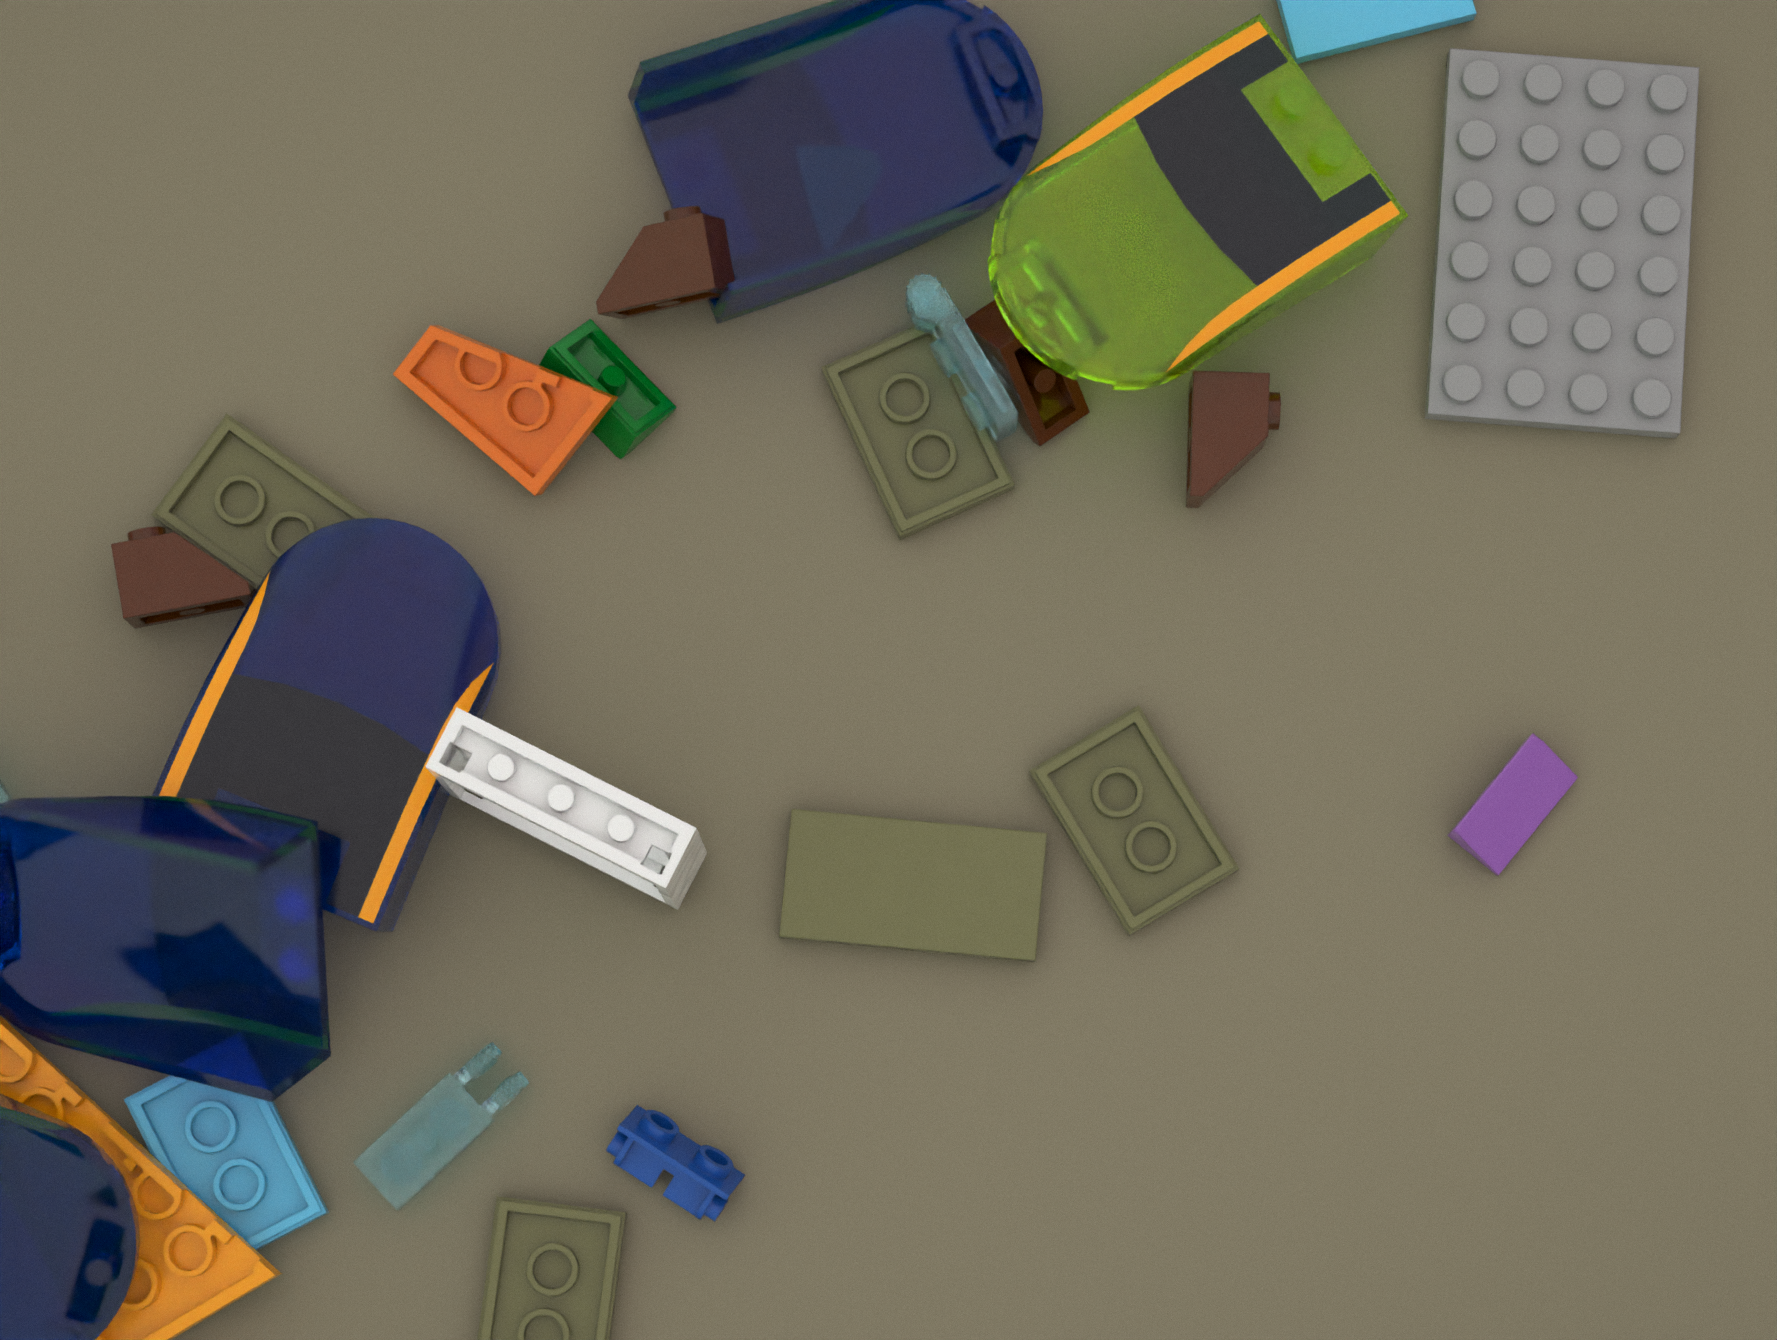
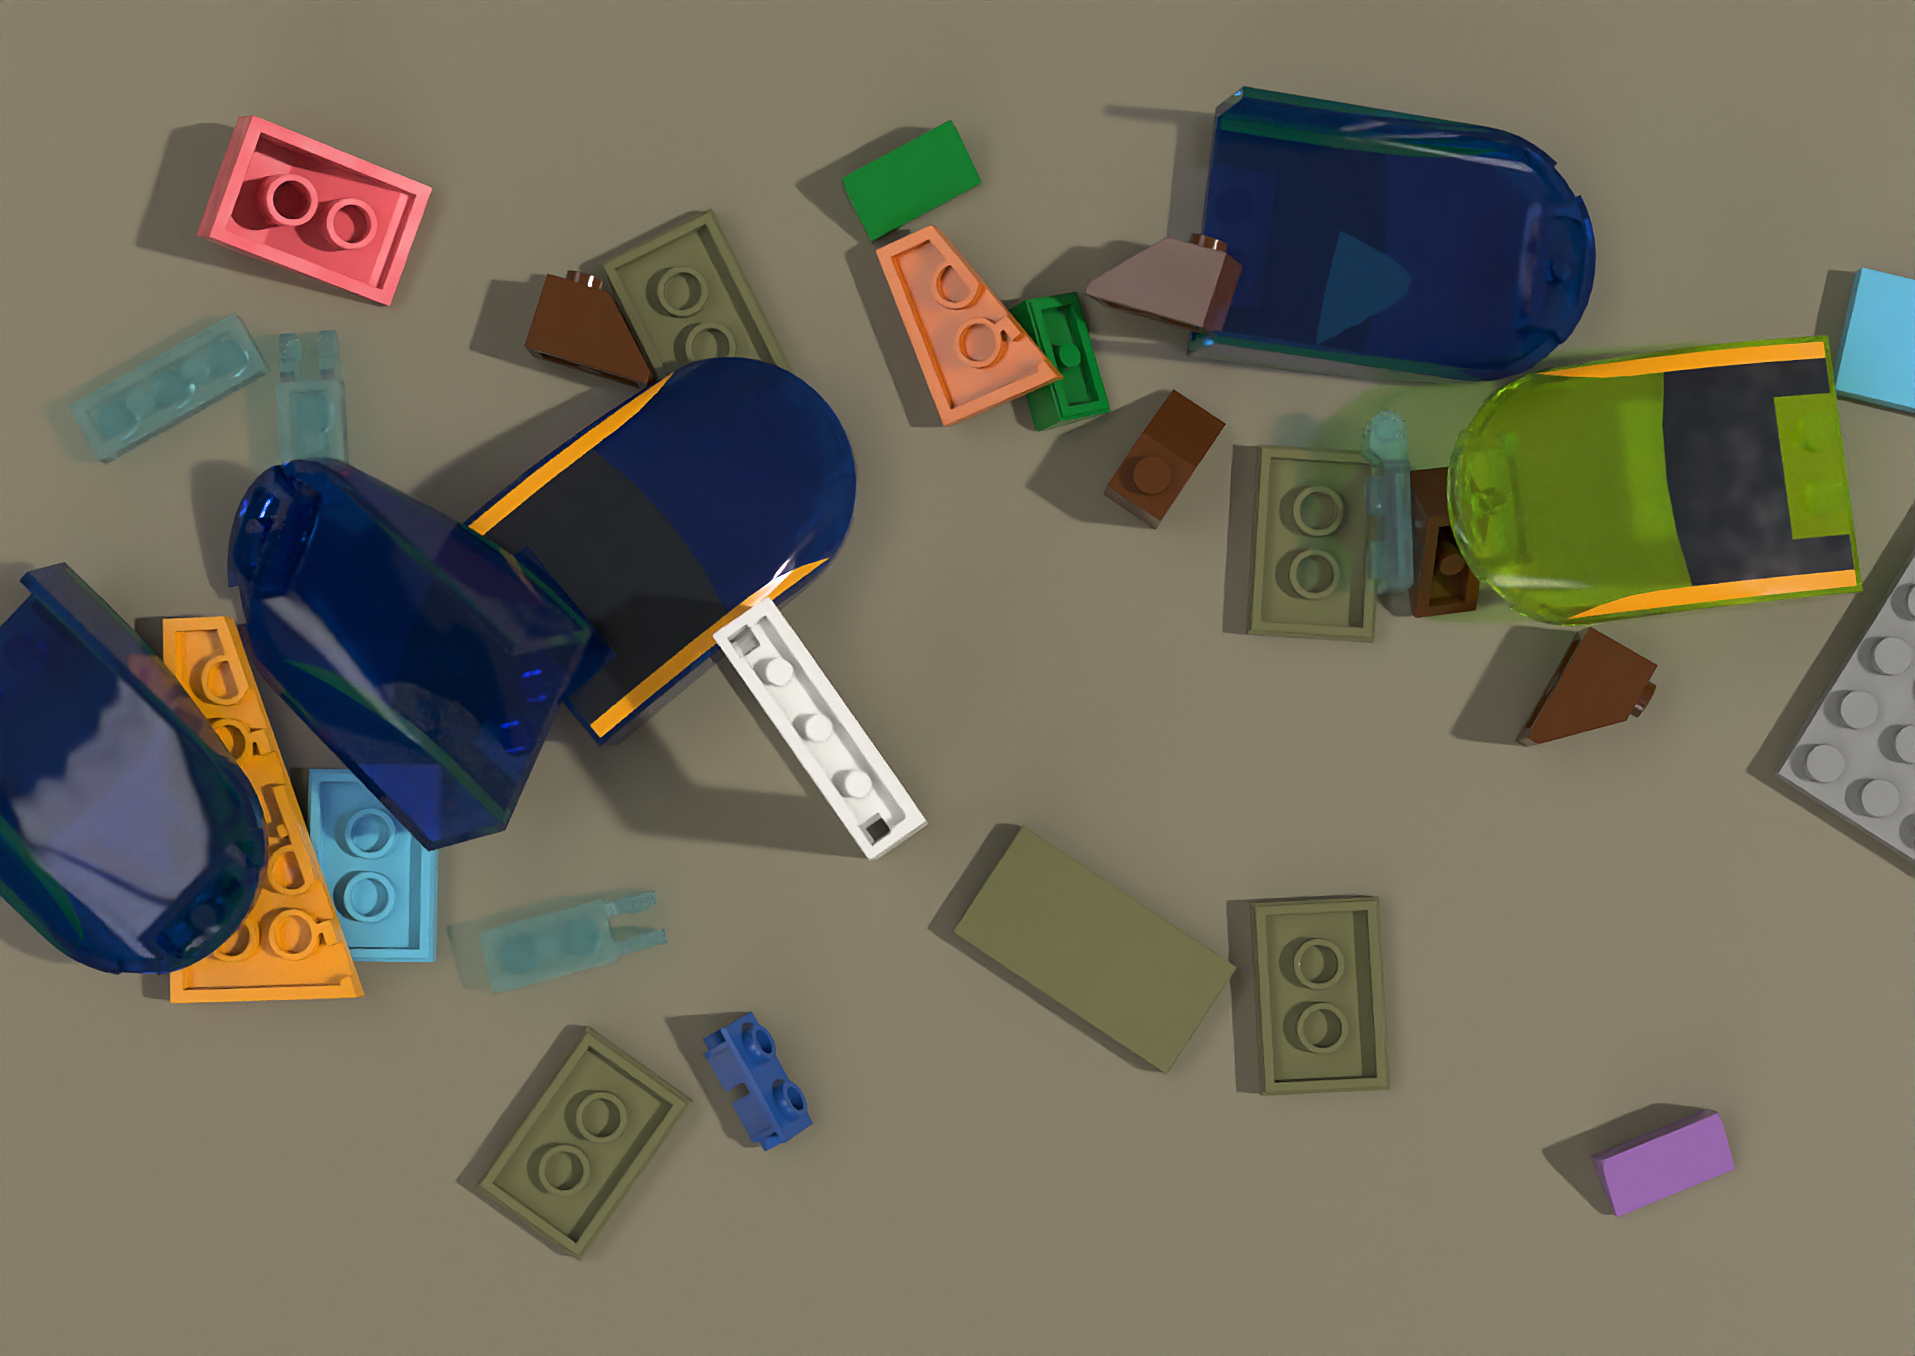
camera: 30 degrees right, 5 degrees up
(392, 298) = (910, 181): none -> green slope
(744, 424) = (1164, 459): none -> reddish brown slope

